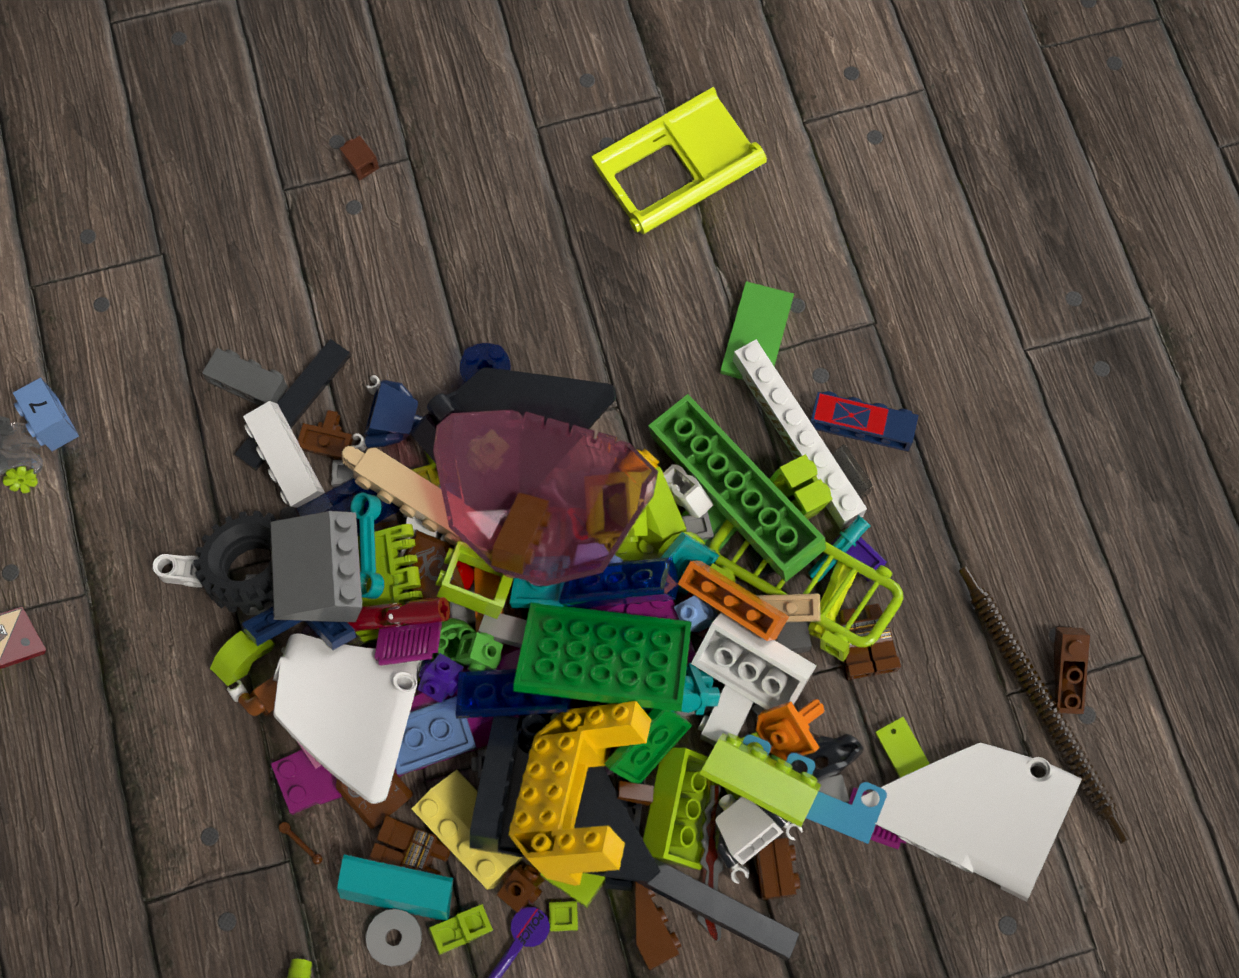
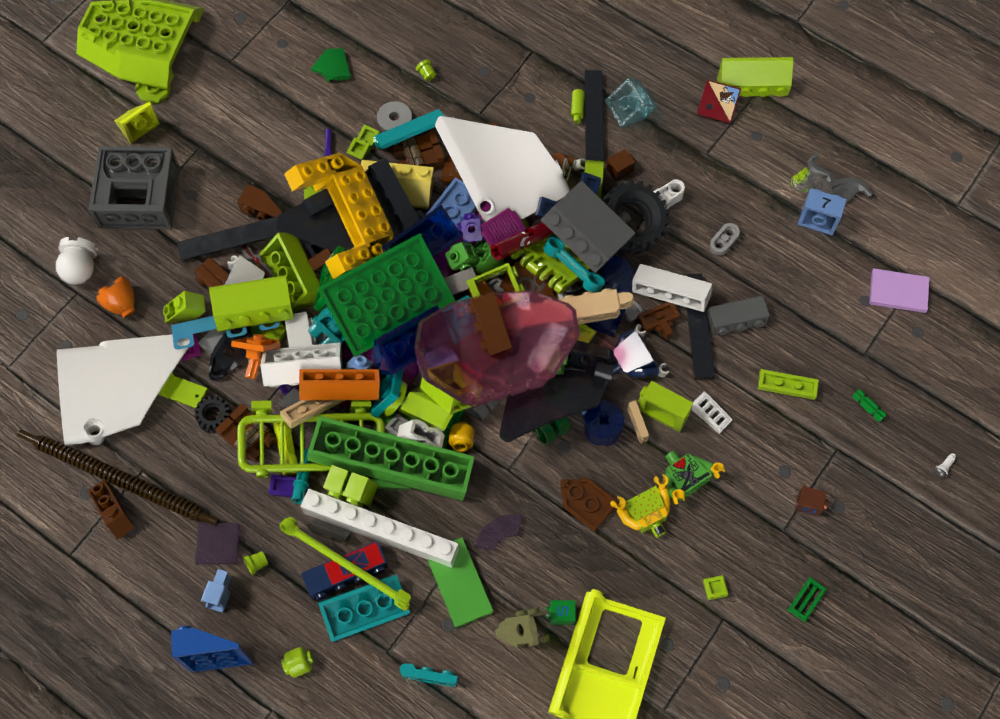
camera: 140 degrees right, 5 degrees down
(59, 285) = (899, 290): none -> lavender tile
(106, 722) = (630, 103): none -> clear light blue slope
(160, 745) = (593, 115): none -> black tile
(167, 771) = (577, 105): none -> lime cylinder
(173, 473) = (723, 240): none -> light grey plate
(194, 649) = (620, 164): none -> reddish brown brick
(211, 98) = (941, 470): none -> white piece
(211, 202) = (869, 405): none -> green axle
(267, 277) = (787, 384): none -> lime plate
(371, 325) = (709, 402): none -> white slope
(411, 337) = (664, 406): none -> lime window
(448, 91) = (797, 613): none -> green tile
(450, 349) = (637, 421): none -> tan tile
(452, 263) = (688, 474): none -> torso
(519, 155) = (715, 587): none -> lime tile
(519, 261) = (646, 509): none -> torso
(568, 315) = (586, 501): none -> reddish brown tile
(679, 354) = (497, 530): none -> clear purple tile
(682, 232) = (561, 612): none -> green brick
(723, 236) = (509, 629): none -> olive piece
(837, 858) = (184, 307): none -> lime slope
(853, 267) = (427, 675): none -> teal hinge
(870, 371) = (360, 609): none -> teal slope
(888, 680) = (207, 405): none -> black tyre
(890, 498) = (401, 598): none -> lime hinge
(910, 933) = (118, 298): none -> orange piece
(948, 496) = (255, 562): none -> lime piece
(971, 369) = (297, 662): none -> lime head
(977, 547) = (217, 544): none -> clear purple tile
(1011, 488) = (217, 592): none -> light blue piece
(1059, 416) = (204, 651): none -> blue slope

